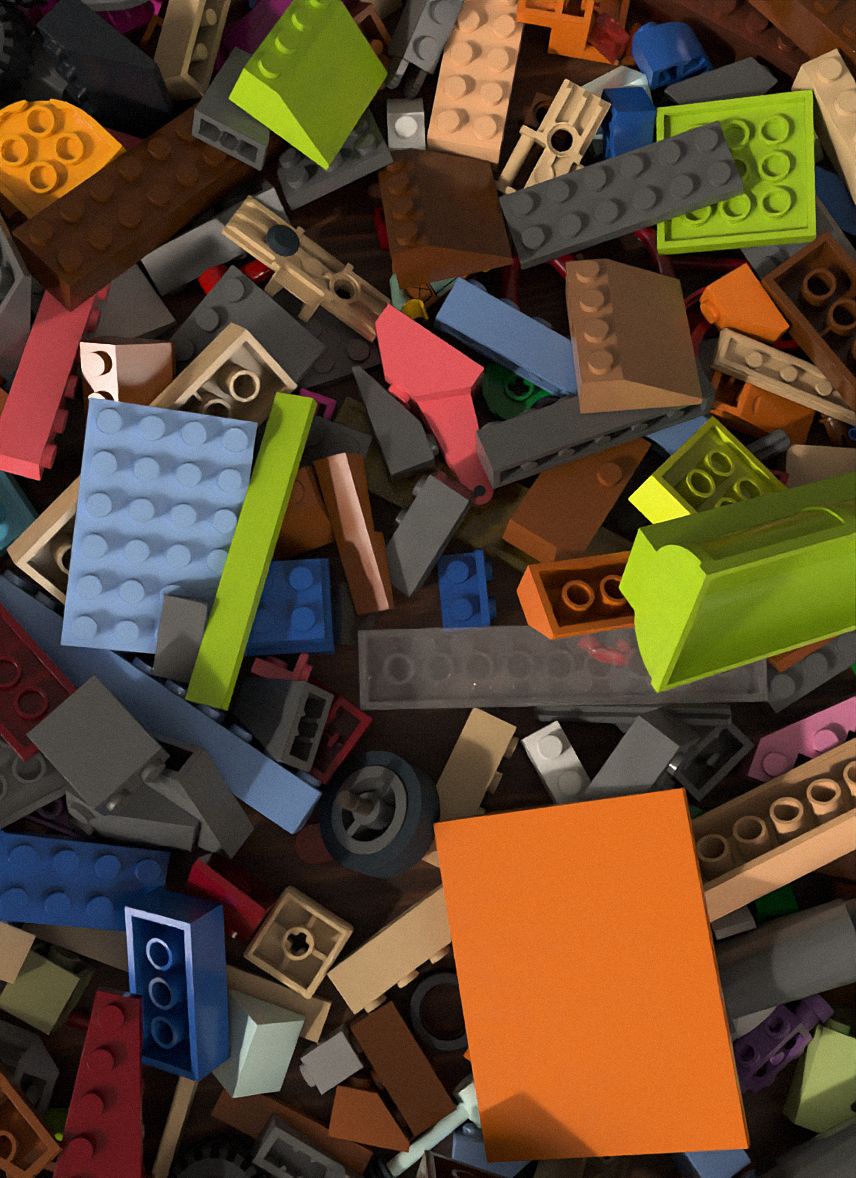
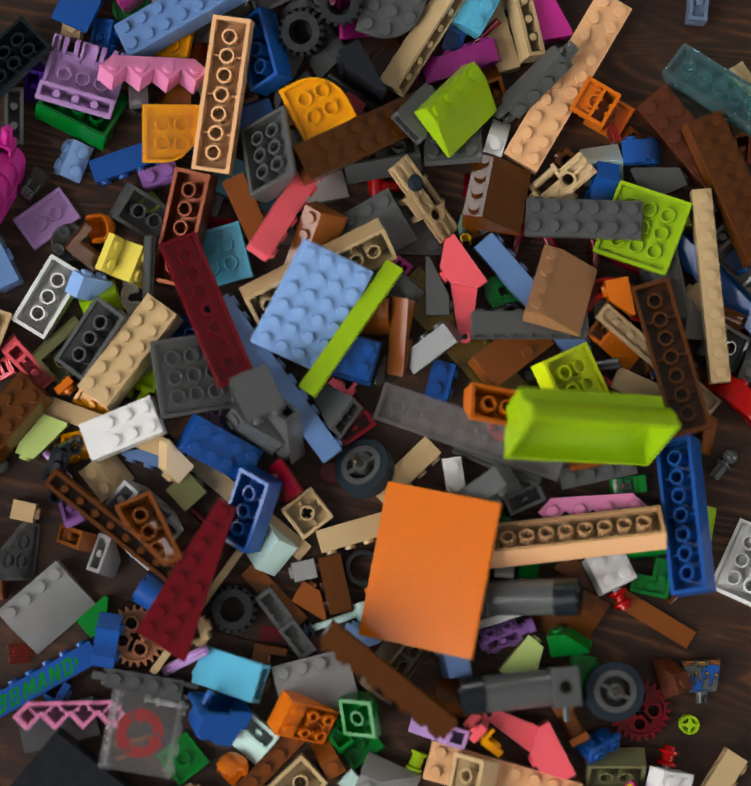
camera: 15 degrees right, 5 degrees up
(179, 636) = (304, 357): dark grey slope -> none

